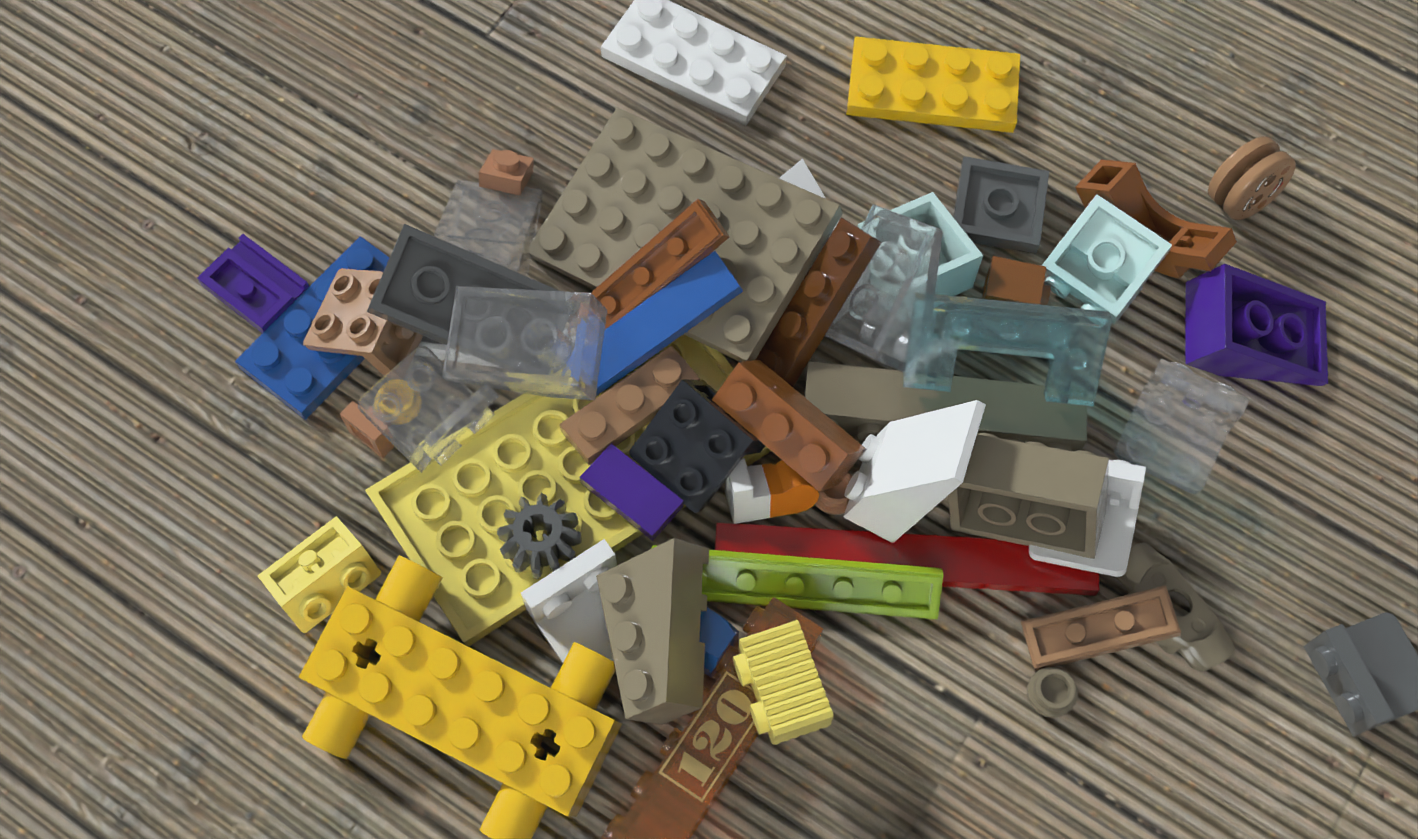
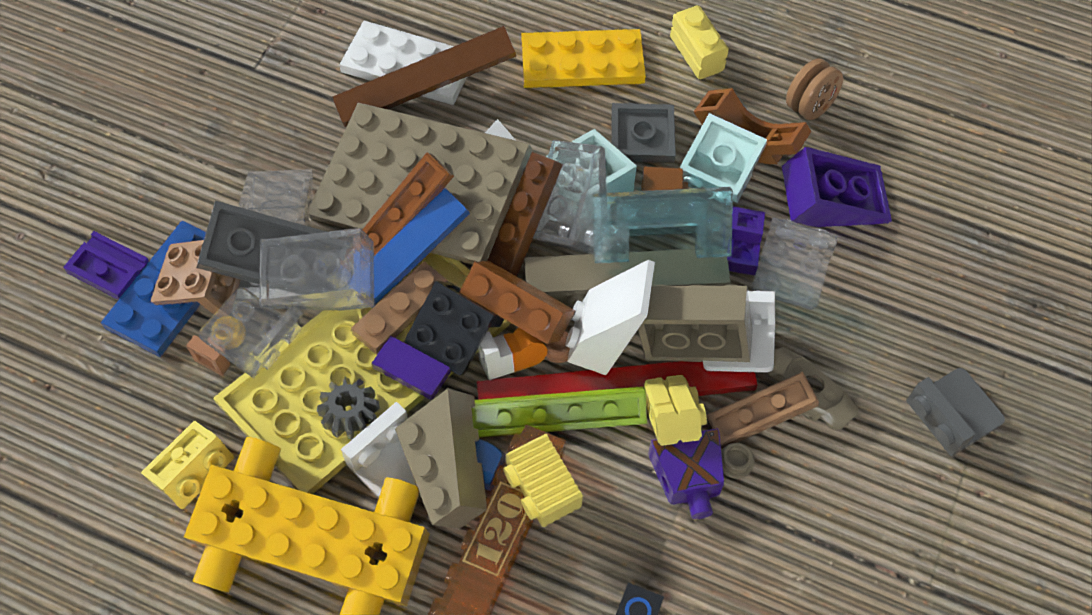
camera: 10 degrees left, 5 degrees down
(506, 172) = (283, 160): nougat plate -> none
(718, 79) = (428, 74): none -> reddish brown tile
(978, 610) = (674, 410): none -> light yellow brick
(986, 695) = (690, 471): none -> dark purple torso
(1099, 85) = (699, 42): none -> light yellow brick
(1118, 381) = (746, 240): none -> dark purple slope

